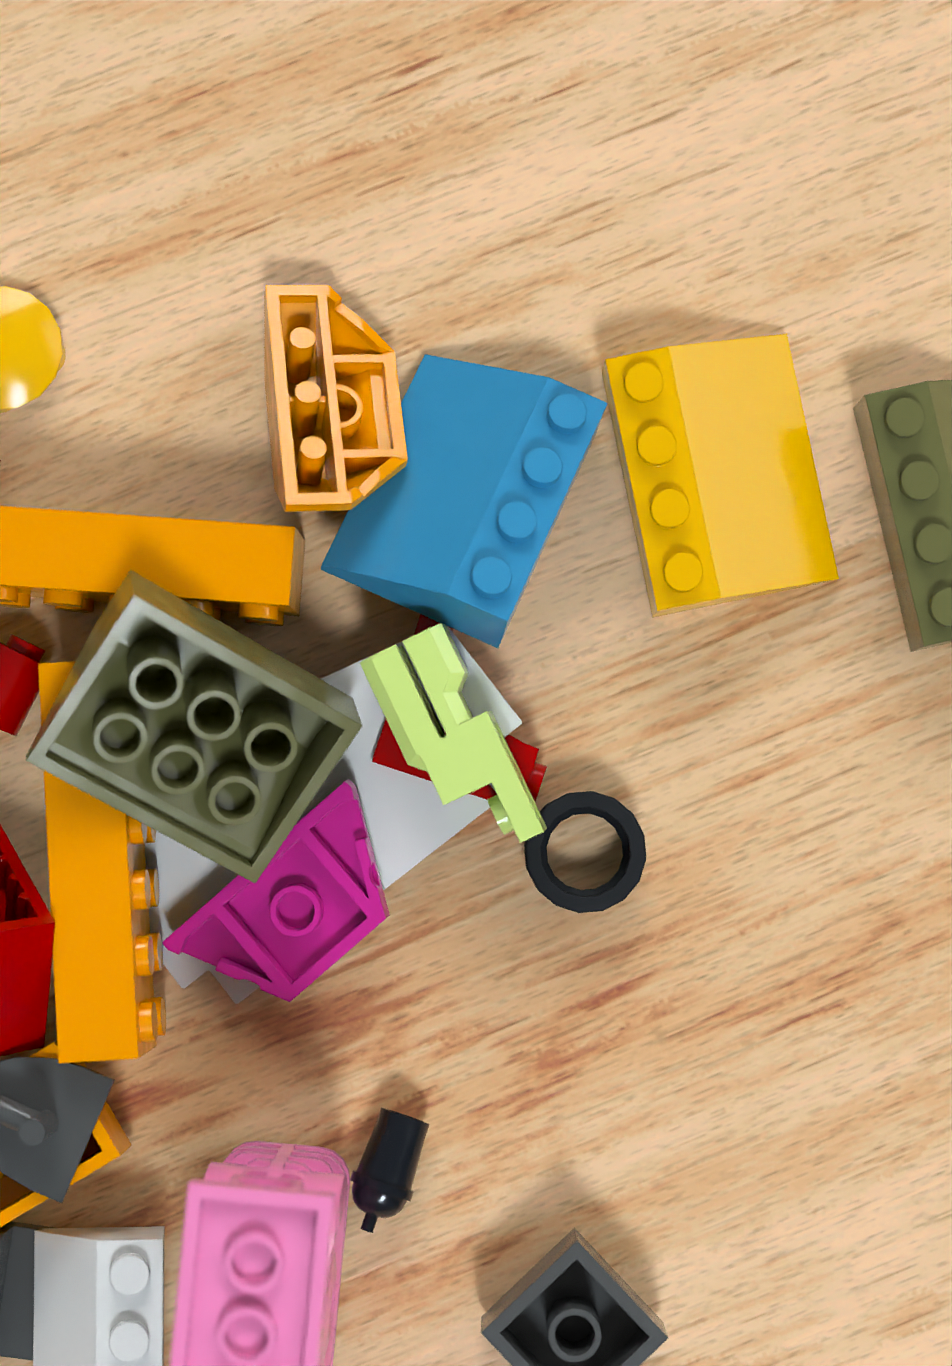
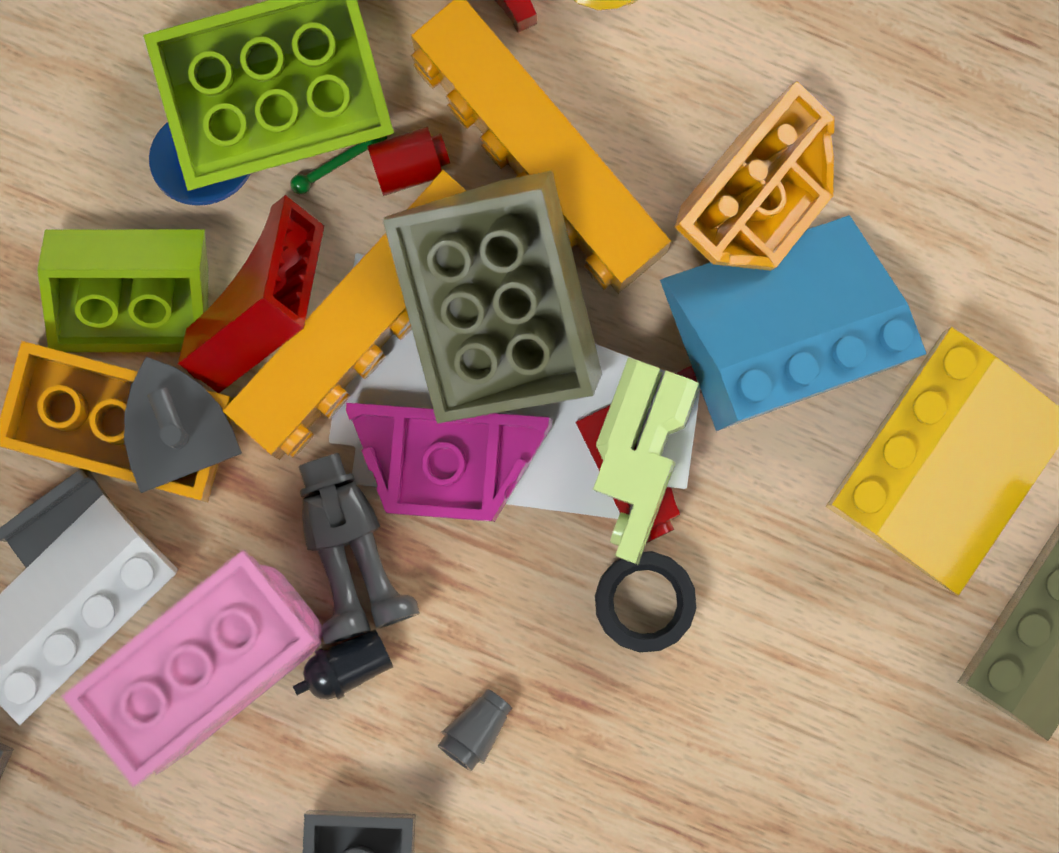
camera: 40 degrees right, 0 degrees up
(251, 1051) = (339, 516): none -> dark grey piece
(552, 1106) = (475, 730): none -> dark grey cone

